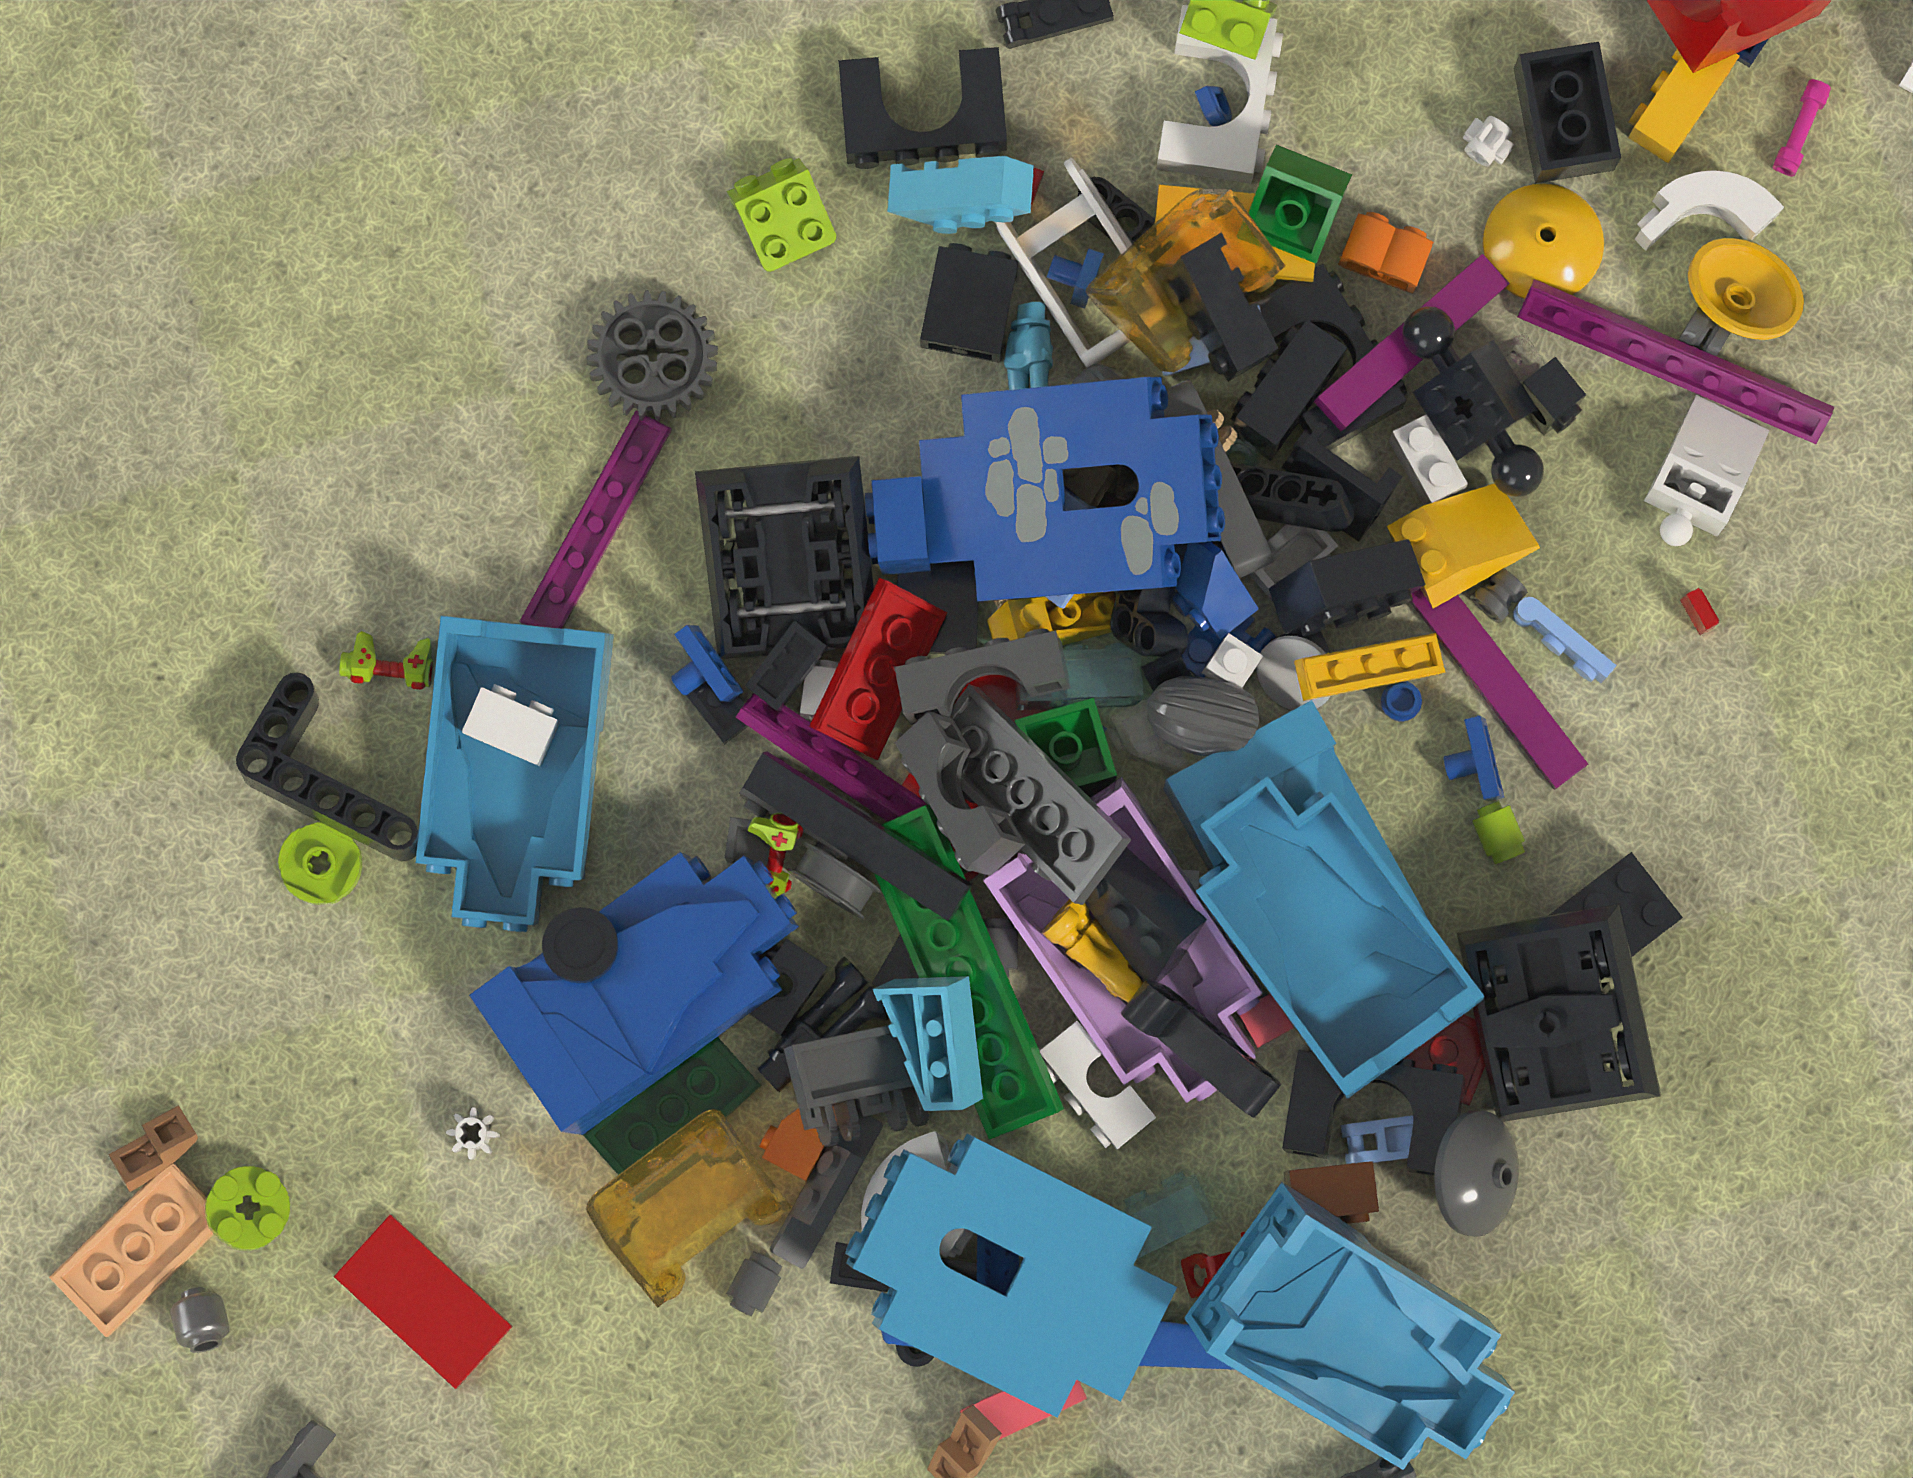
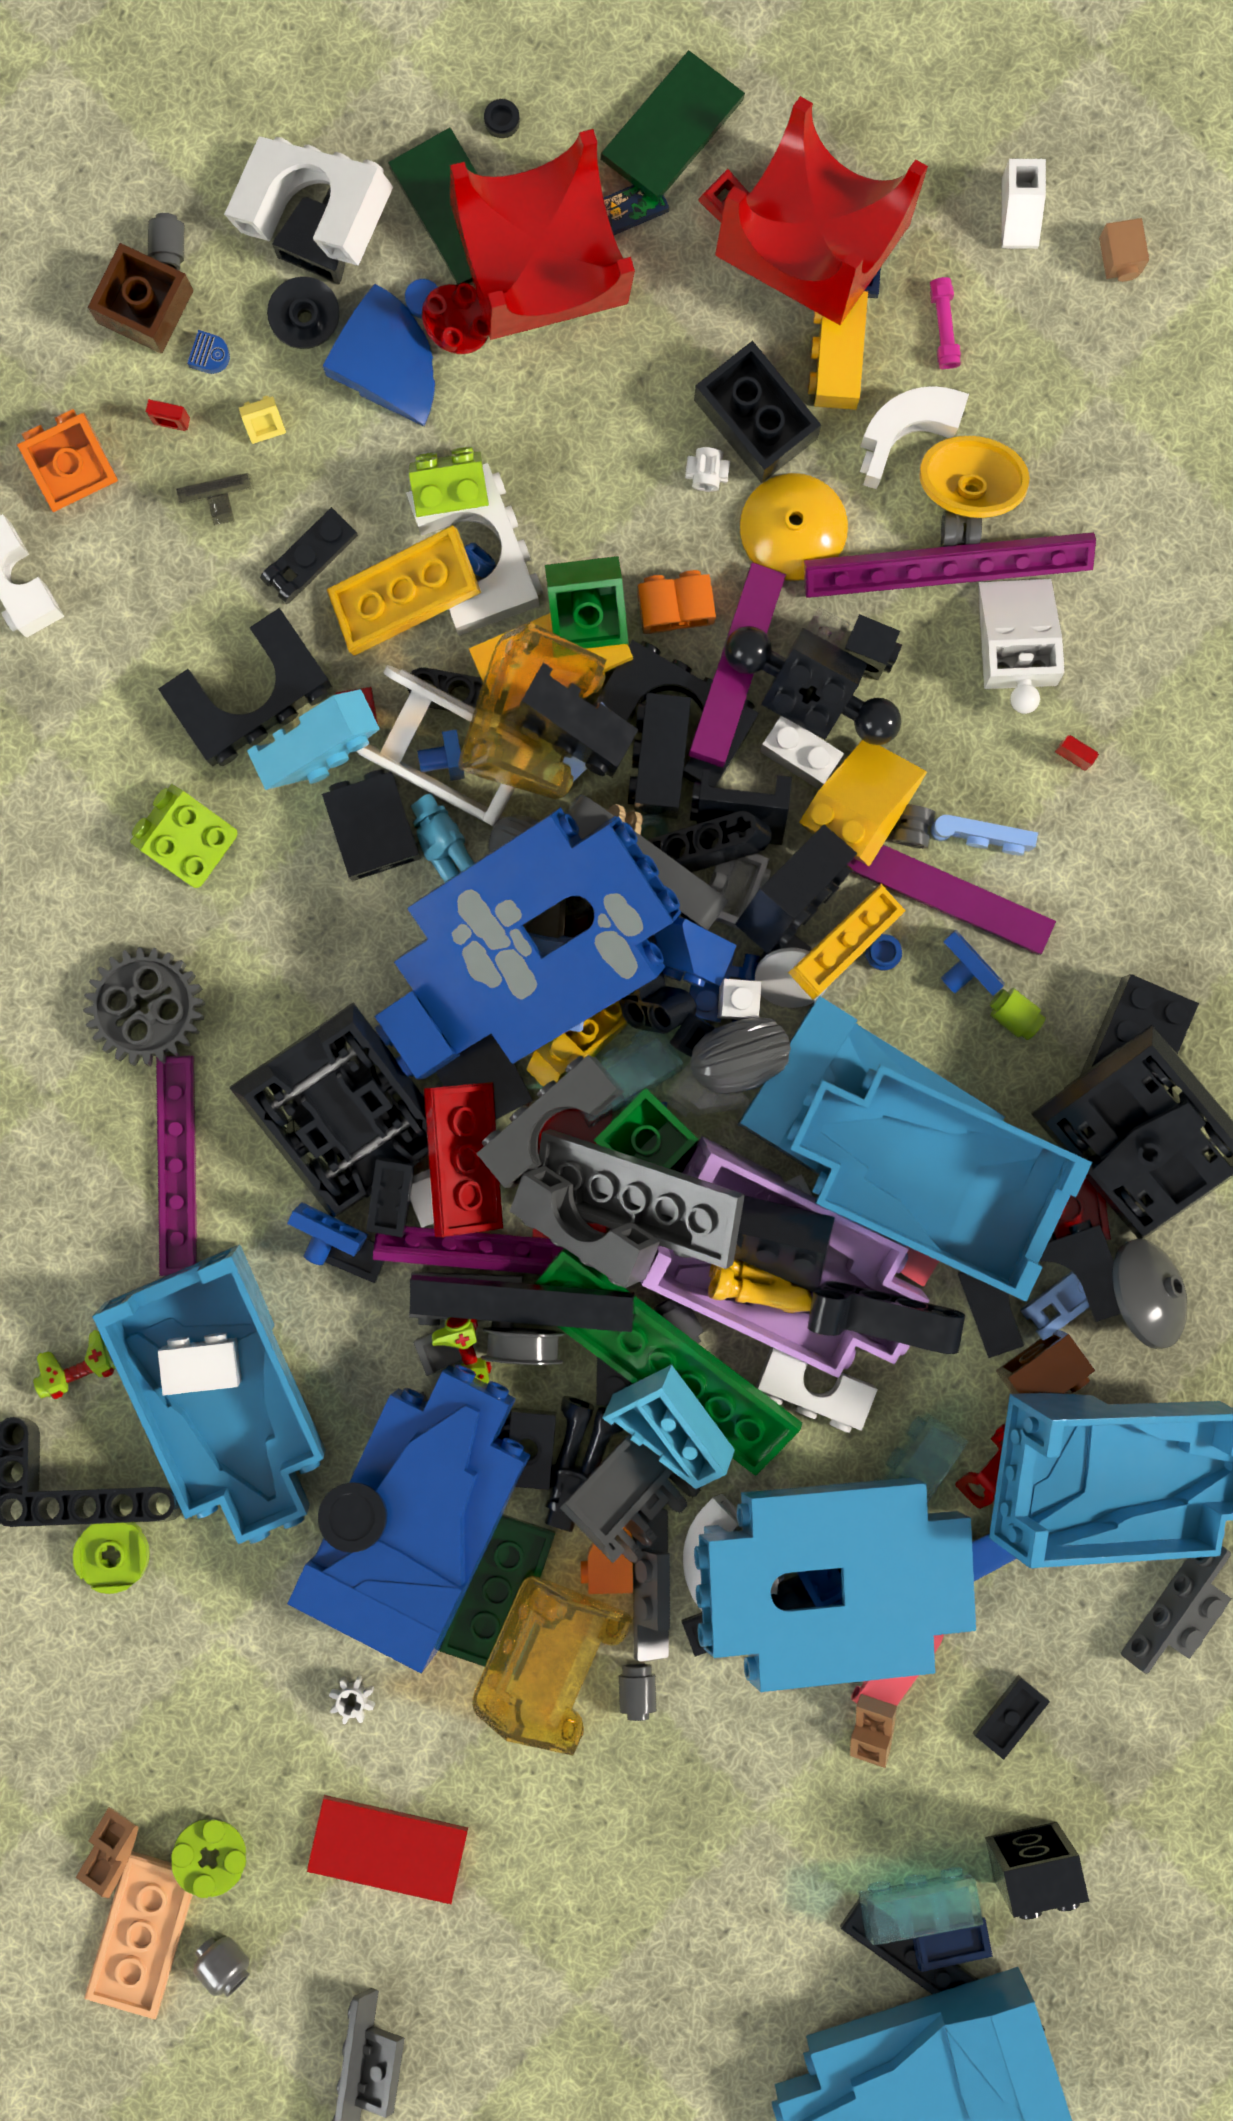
camera: 30 degrees left, 5 degrees up
(1127, 96) = (403, 590): none -> yellow tile

